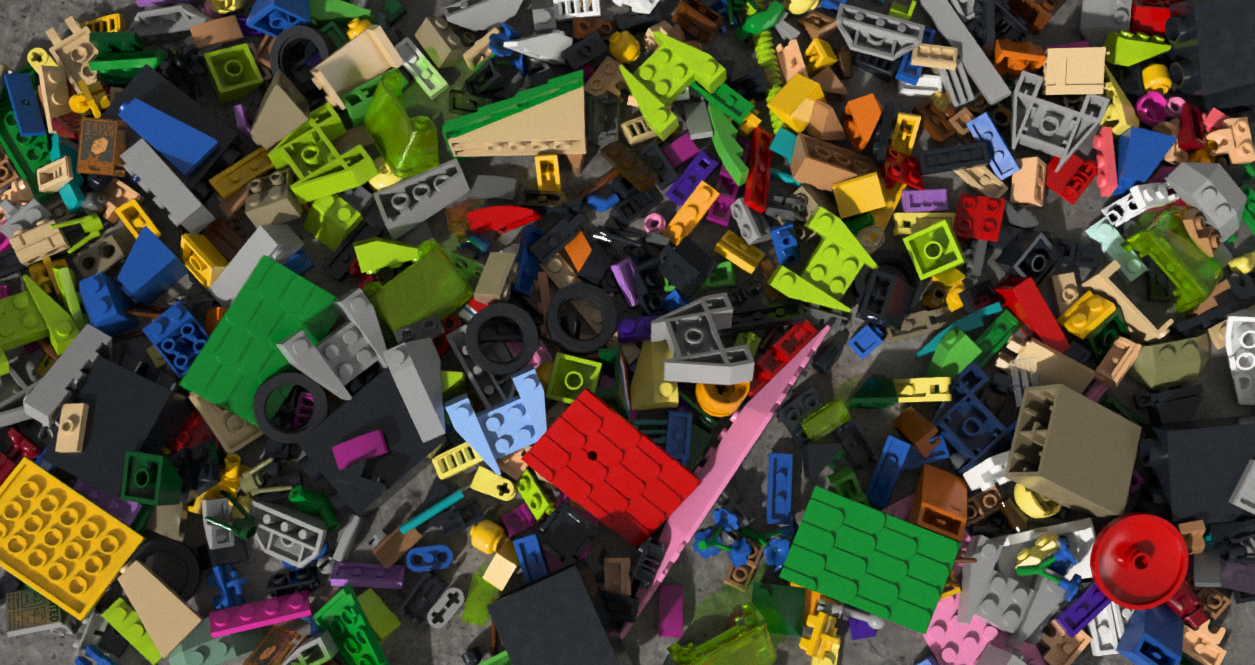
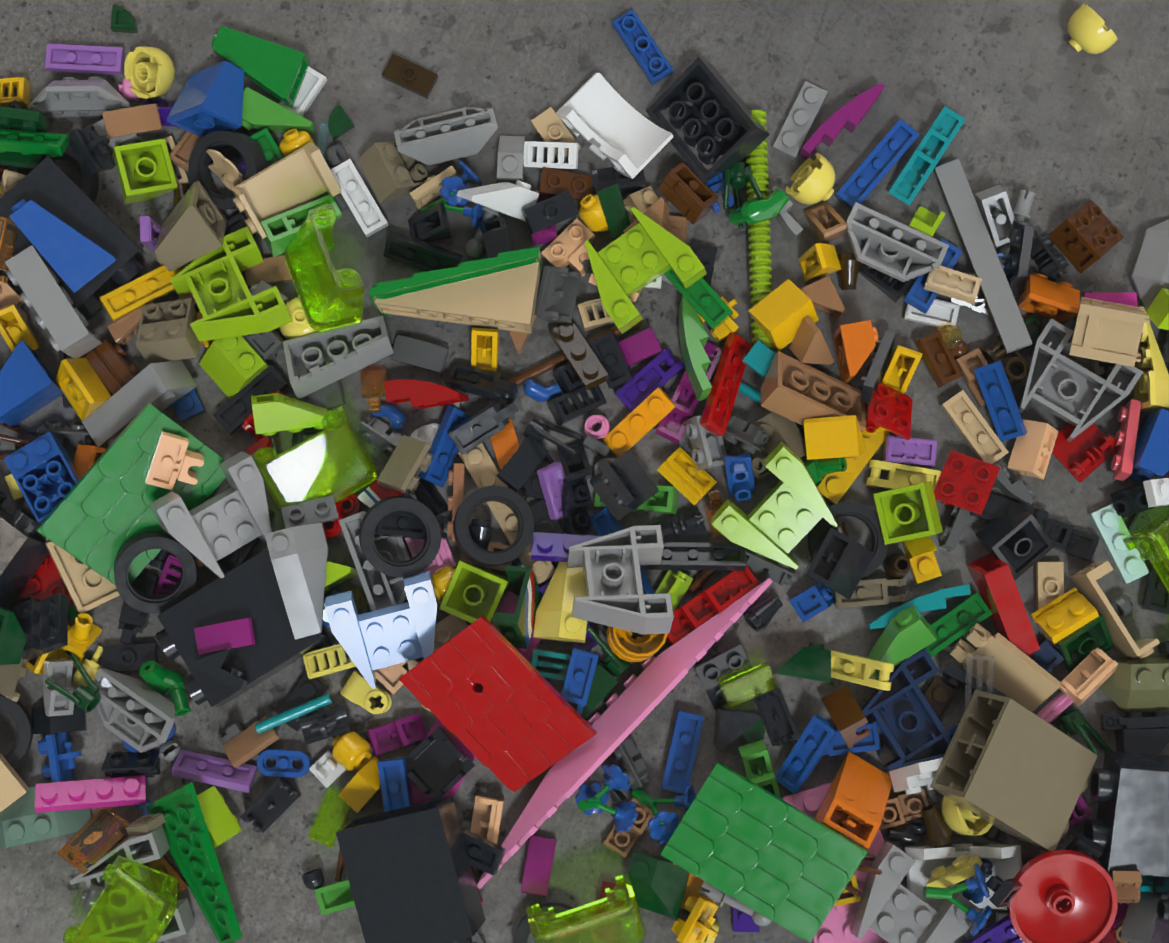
camera: 10 degrees right, 5 degrees up
(253, 479) = (102, 645): olive plant -> none
(291, 304) = (172, 462): none -> light nougat plate
(301, 59) = (225, 169): none -> tan plate
(313, 631) = (145, 824): none -> dark tan tile
(348, 538) = (197, 727): light grey tile -> none
(442, 603) = (290, 815): light grey beam -> none
(469, 557) = (327, 769): none -> white tile
(532, 493) = (407, 710): lime hinge -> none
(638, 41) = (614, 209): none -> dark green sticker
(638, 571) = (523, 797): black hinge -> none
(698, 120) = (666, 313): light grey tile -> none
(753, 85) = (736, 283): black slope -> none
(790, 61) = (785, 262): light nougat hinge -> none
(864, 238) = (829, 491): clear plate -> none
(953, 158) = (951, 408): black plate -> none
(964, 81) = (983, 317): light grey tile -> none
(978, 296) = (948, 573): black plate -> none
(1088, 556) = (1003, 890): none -> black tile

